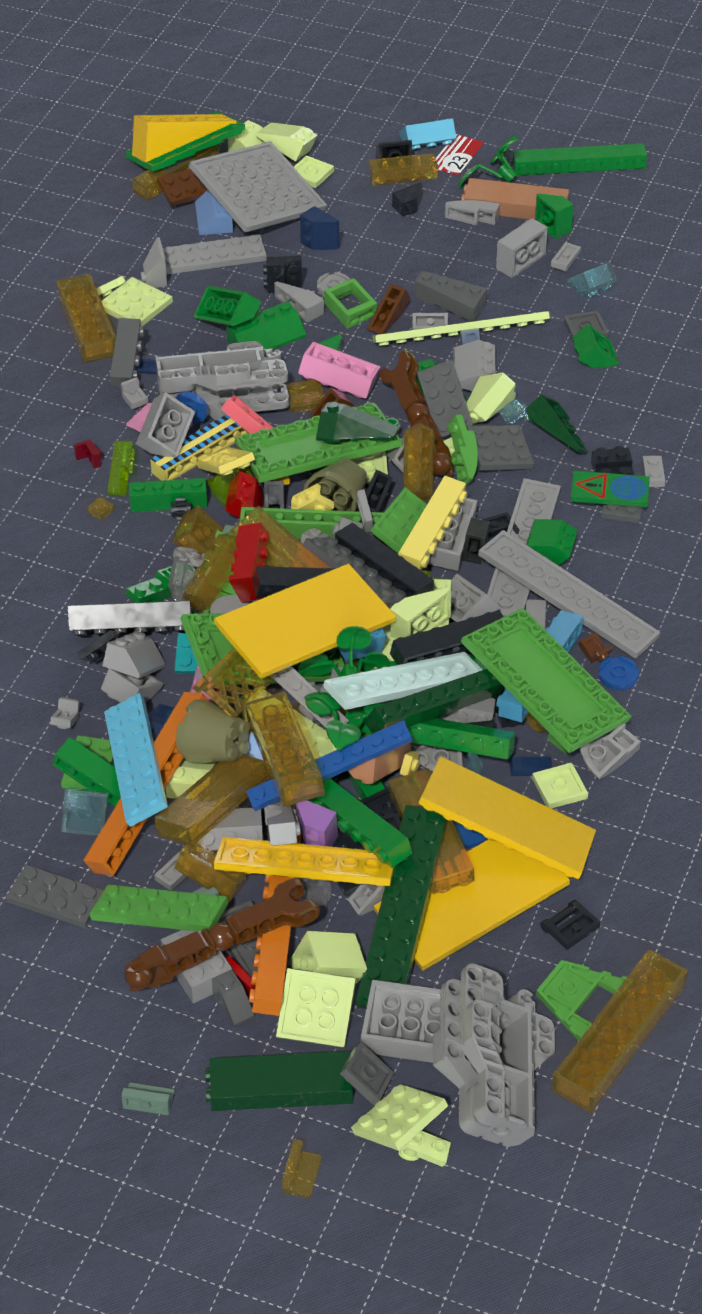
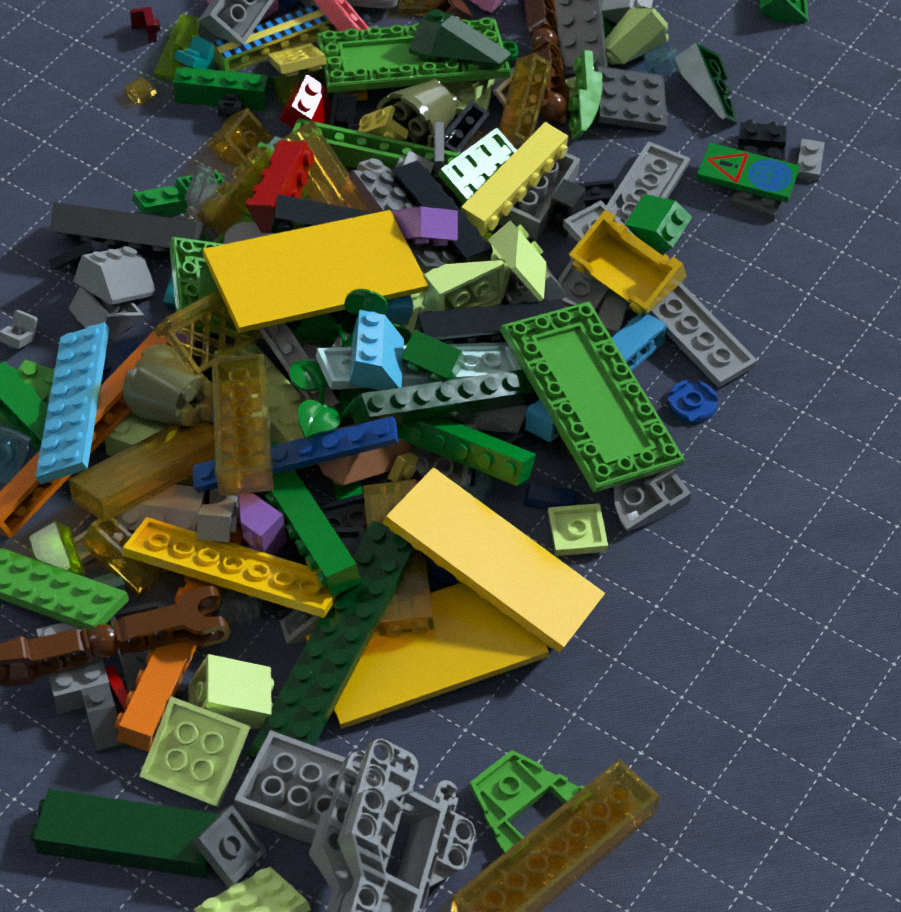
camera: 10 degrees right, 5 degrees up
(142, 470) = (198, 55): none -> teal slope
(153, 874) = (57, 548): none -> clear neon green slope
(189, 553) = (220, 164): light grey tile -> none
(371, 675) = (376, 353): none -> medium azure slope
(381, 570) = (428, 224): none -> medium lavender slope
(417, 671) = (433, 357): none -> green slope
(463, 587) = (521, 257): none -> yellowish green slope
(540, 575) = (626, 264): none -> yellow windscreen
(573, 929) = (539, 713): black plate -> none
(594, 648) = (671, 366): reddish brown bracket -> none

